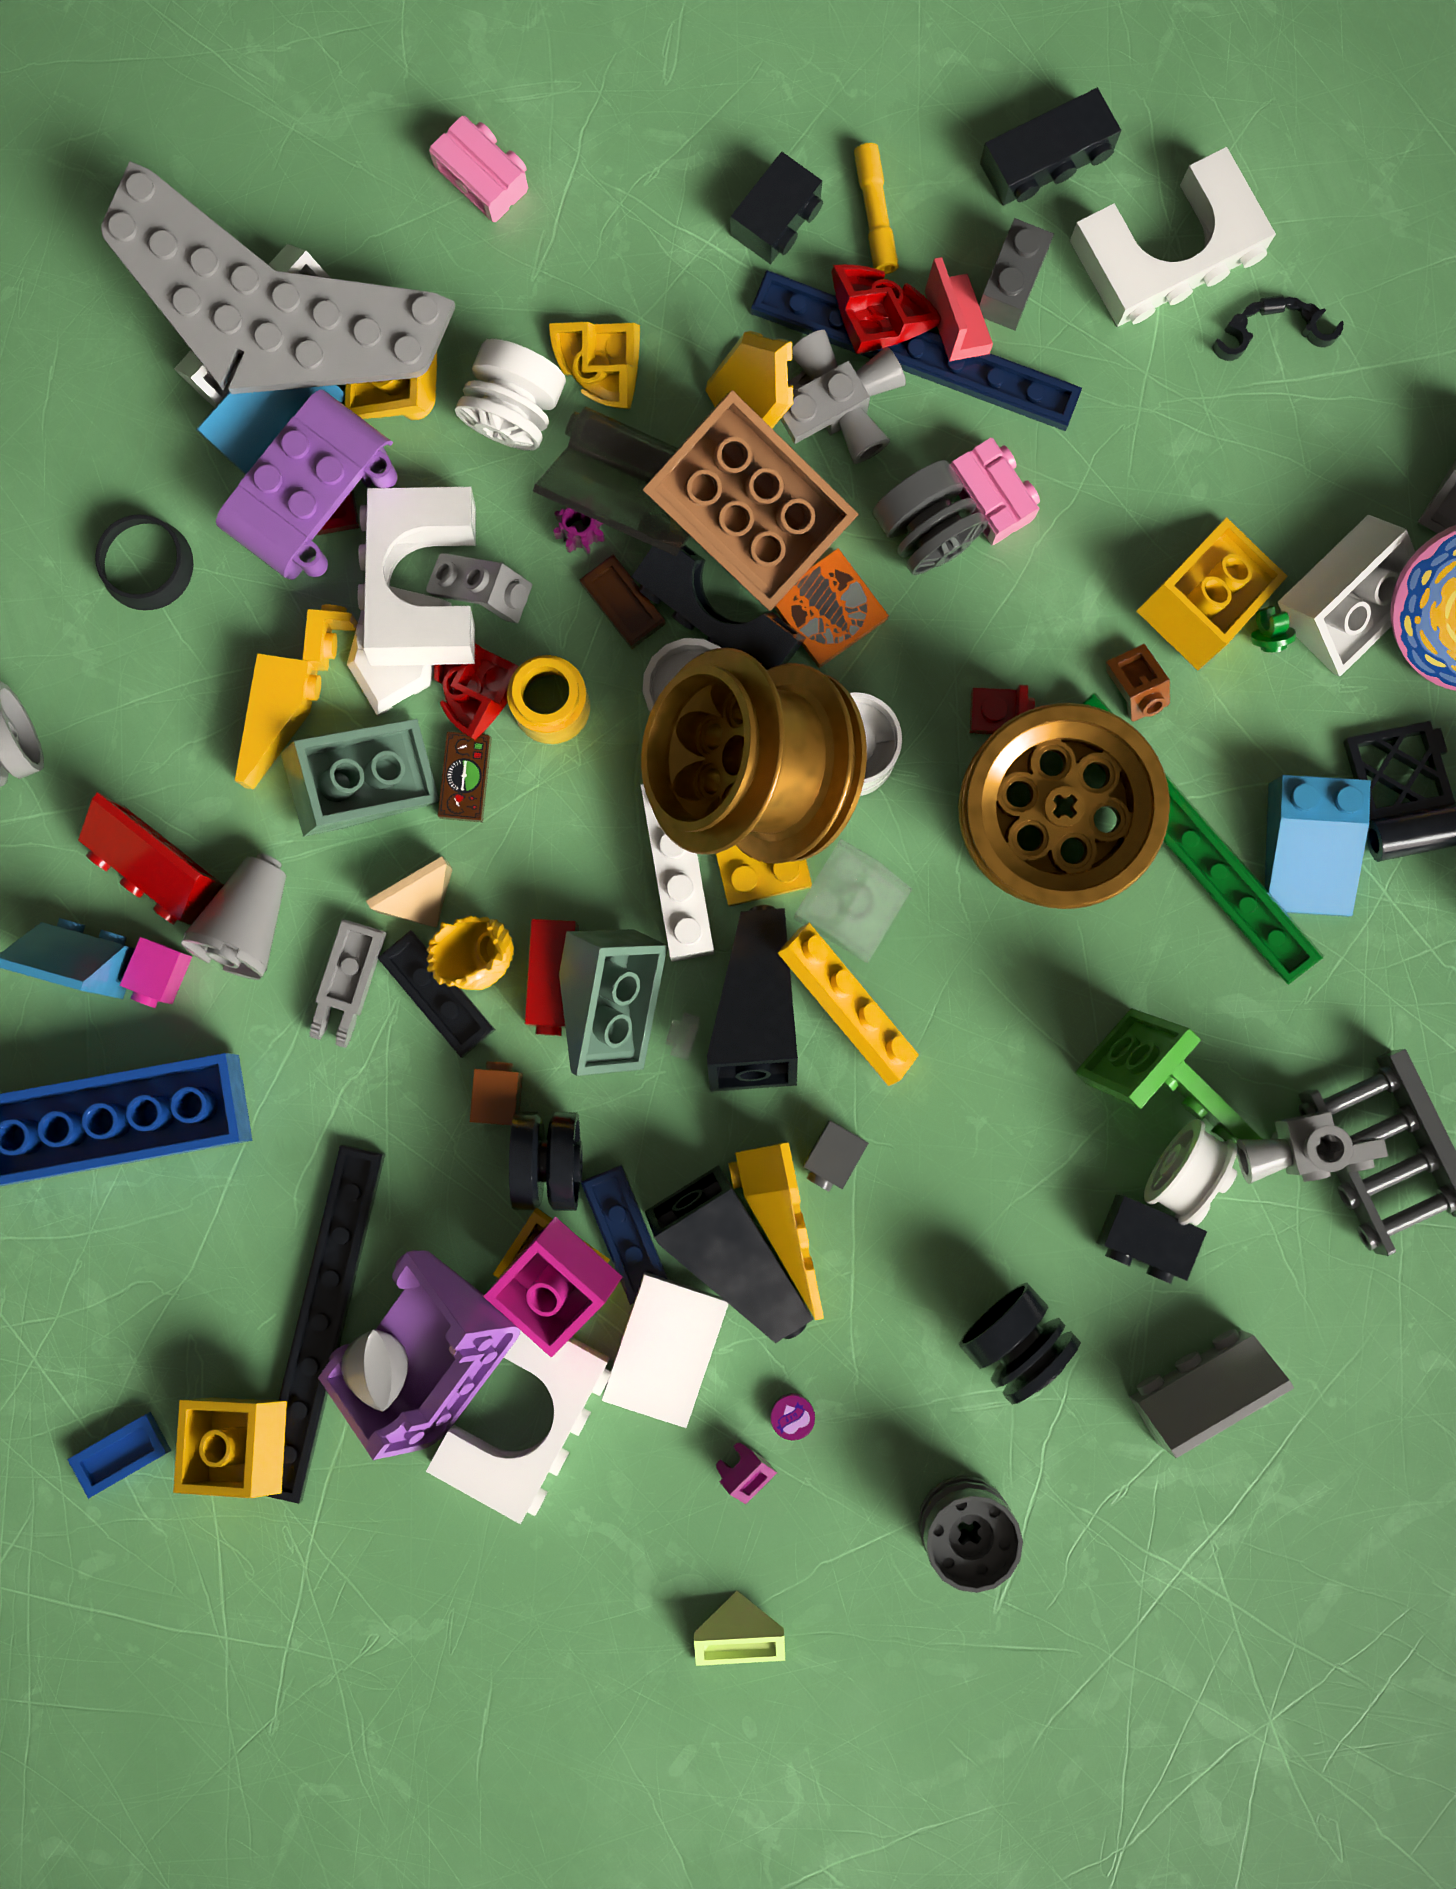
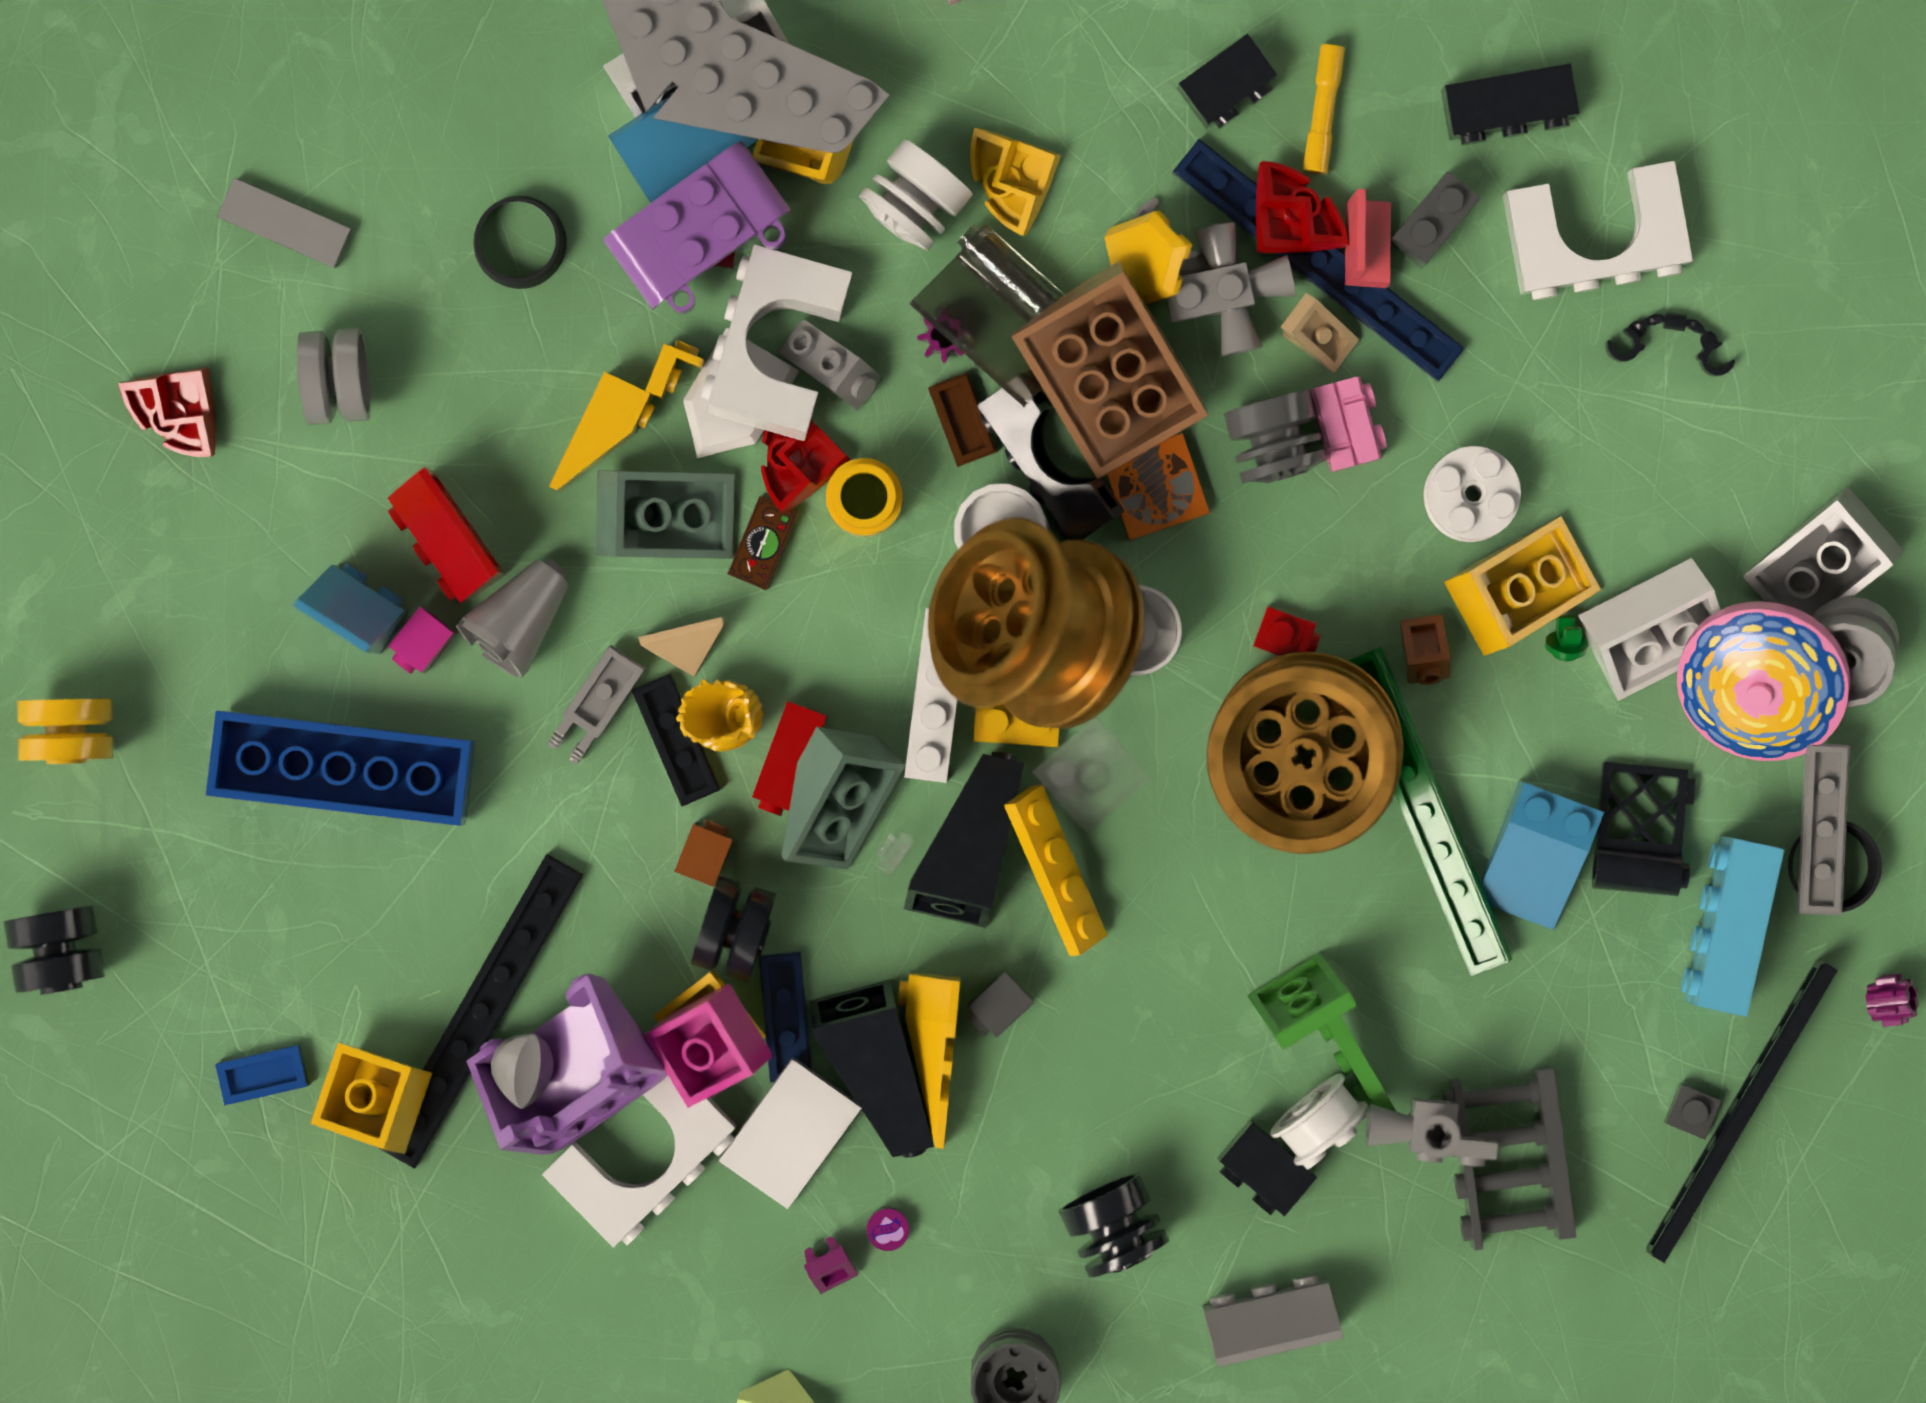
camera: 15 degrees right, 5 degrees up
(938, 412) = (1319, 333): none -> tan slope
(1141, 497) = (1496, 488): none -> white wheel

